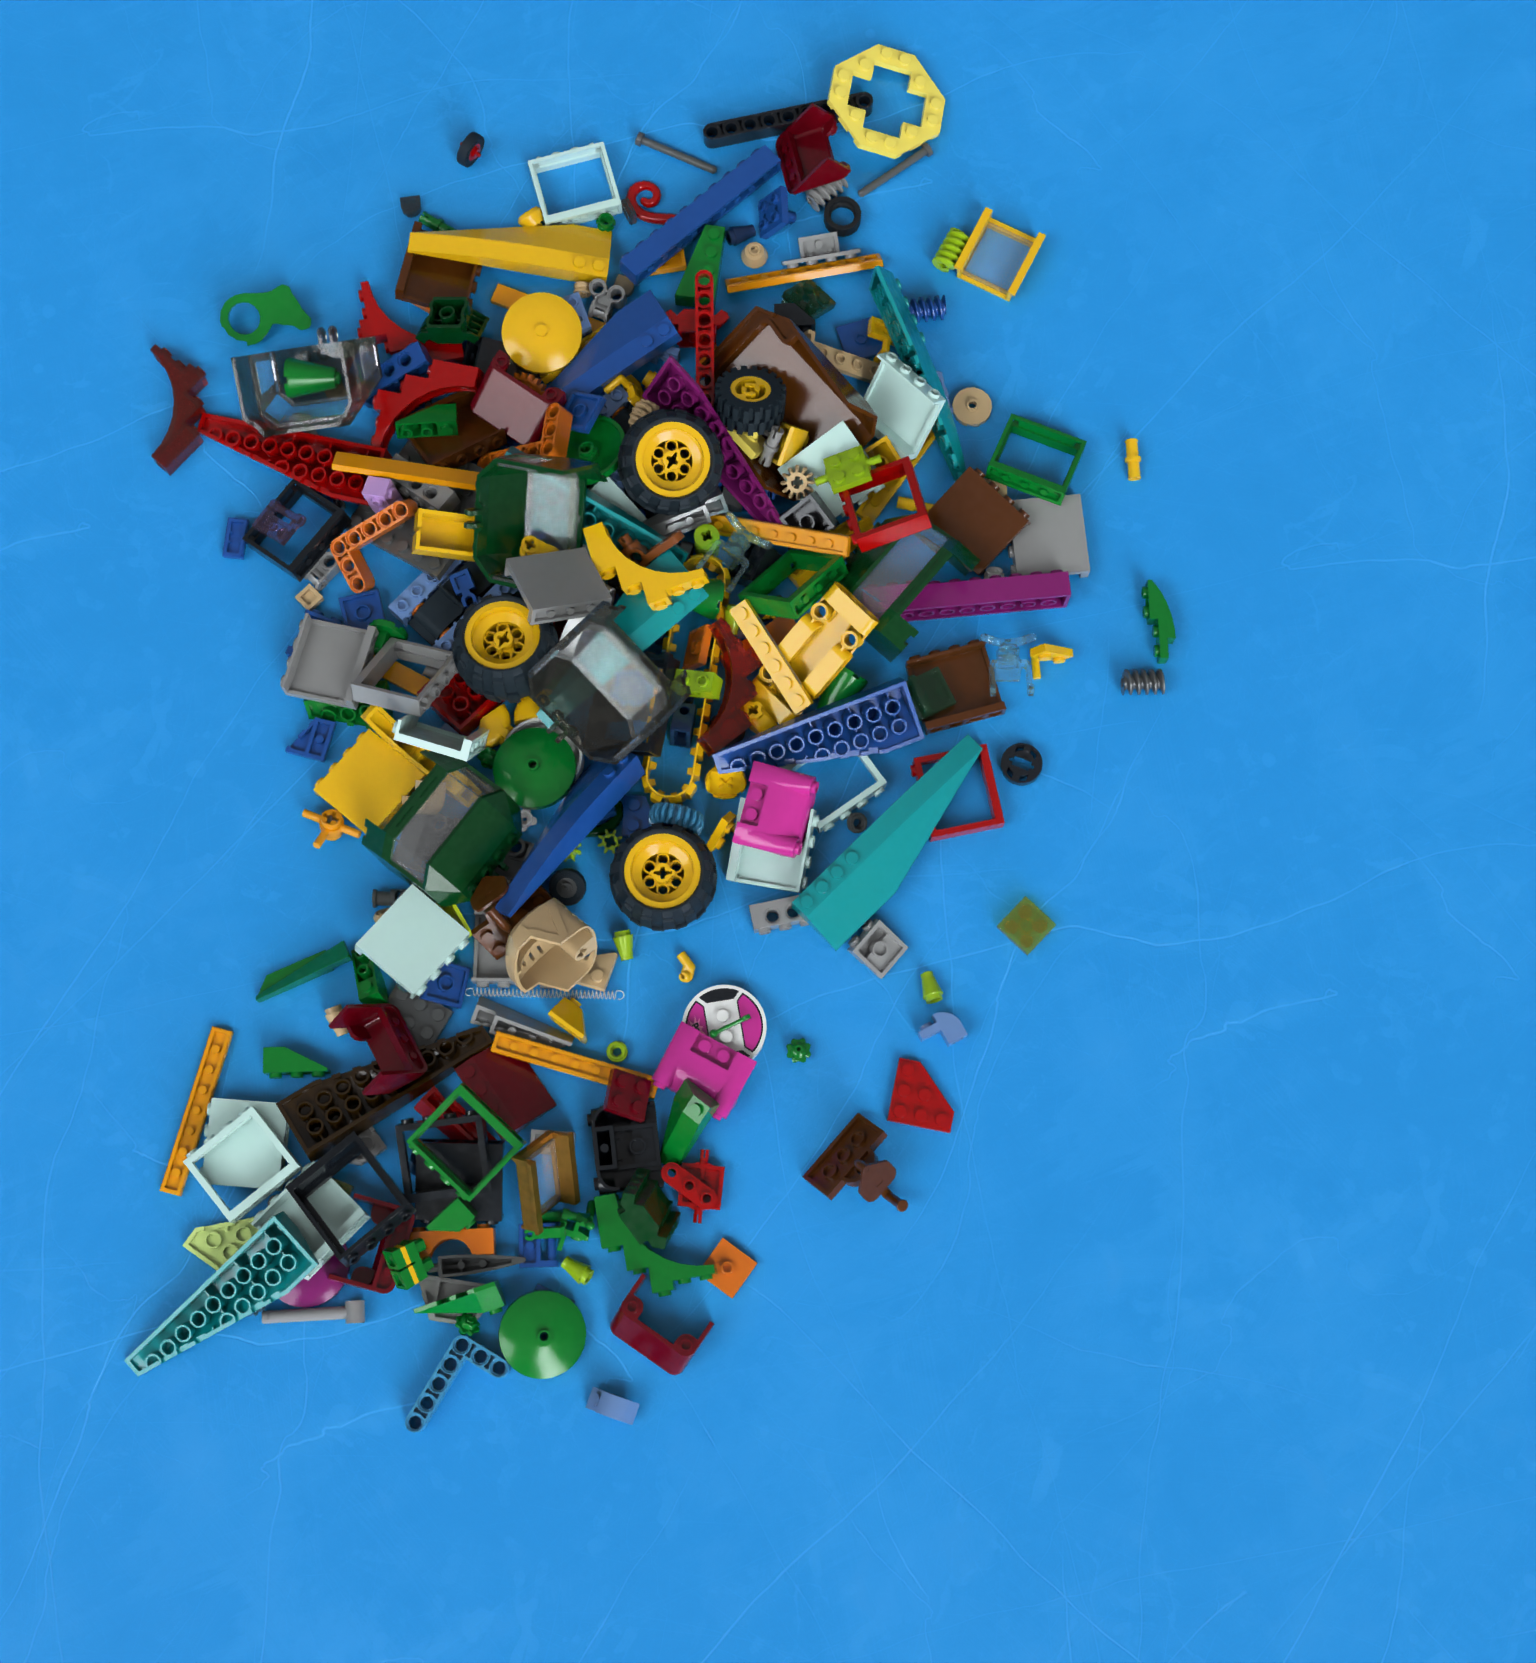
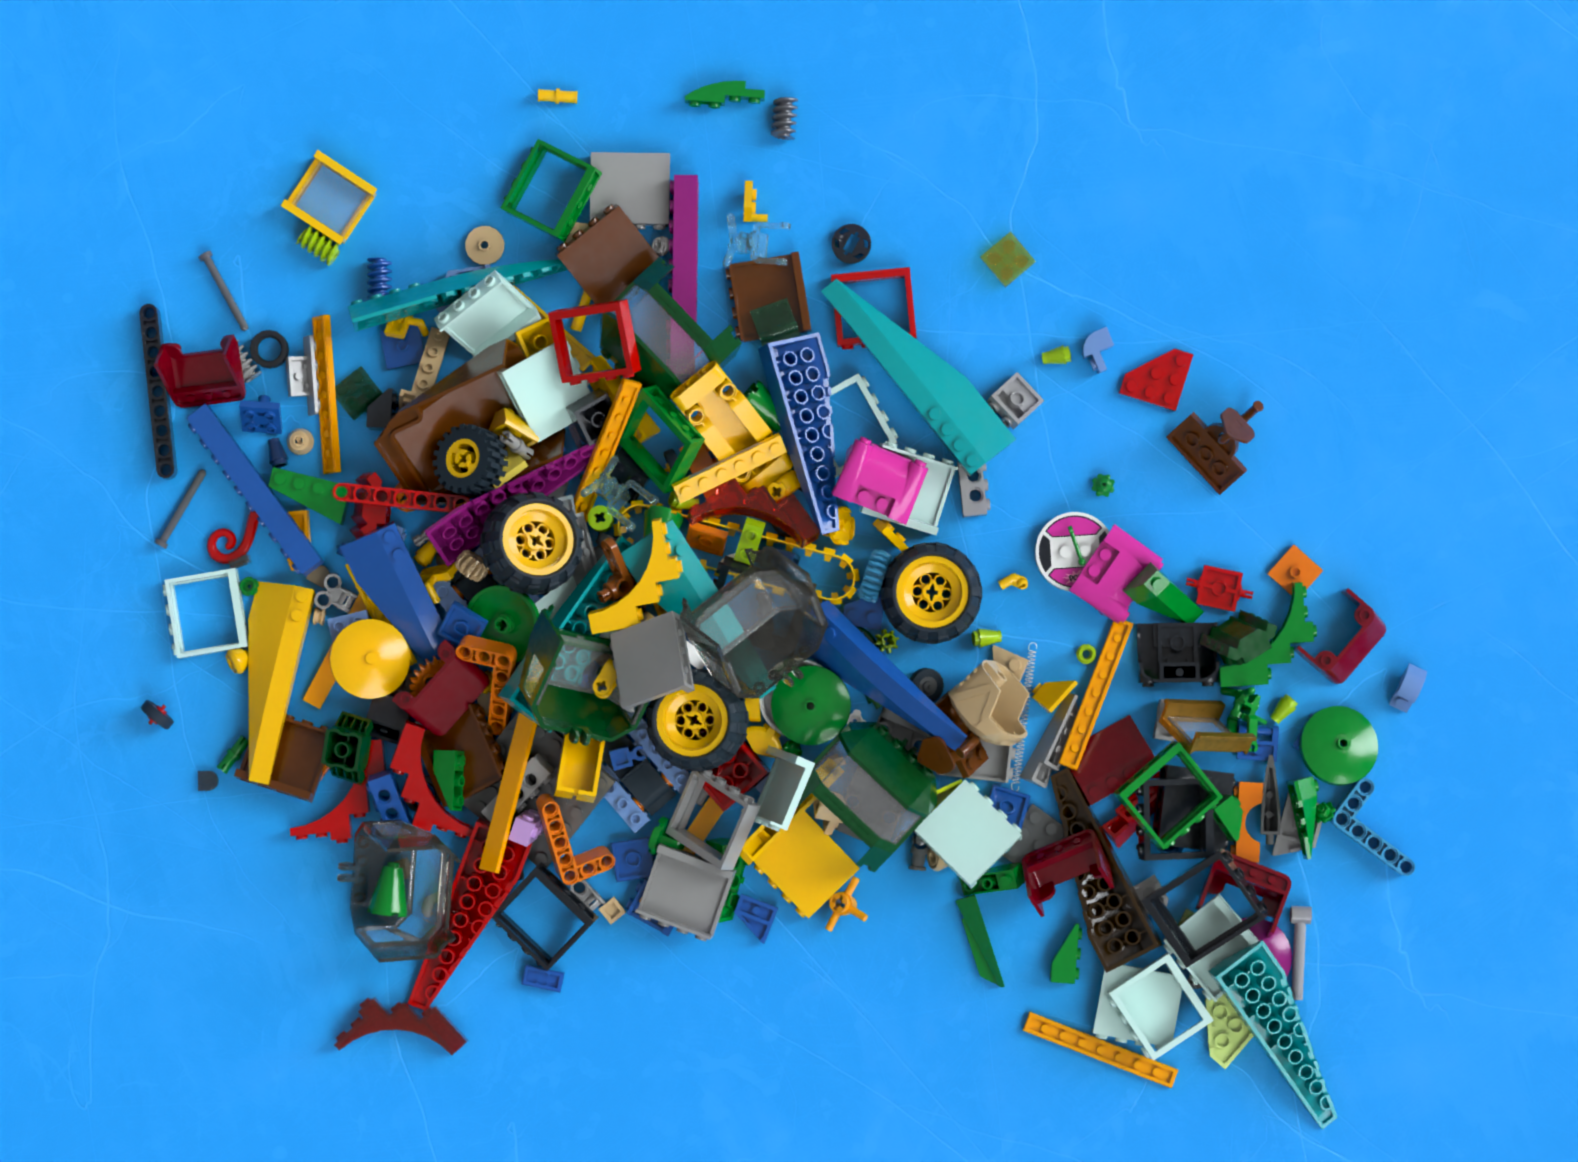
camera: 80 degrees left, 10 degrees up
(273, 306) = (307, 924): green animal -> none
(275, 527) = (543, 937): clear purple plate -> none
(331, 1013) = (1027, 913): tan cone -> none
(406, 1263) = (1268, 861): green hips -> none
(627, 1095) = (1132, 646): dark red plate -> none
(678, 1183) = (1213, 605): red plate -> none
(793, 477) = (557, 416): tan gear -> none
(847, 469) = (552, 373): lime plate -> none
(853, 117) = (133, 255): light yellow plate -> none
(862, 822) = (895, 402): dark grey plate -> none

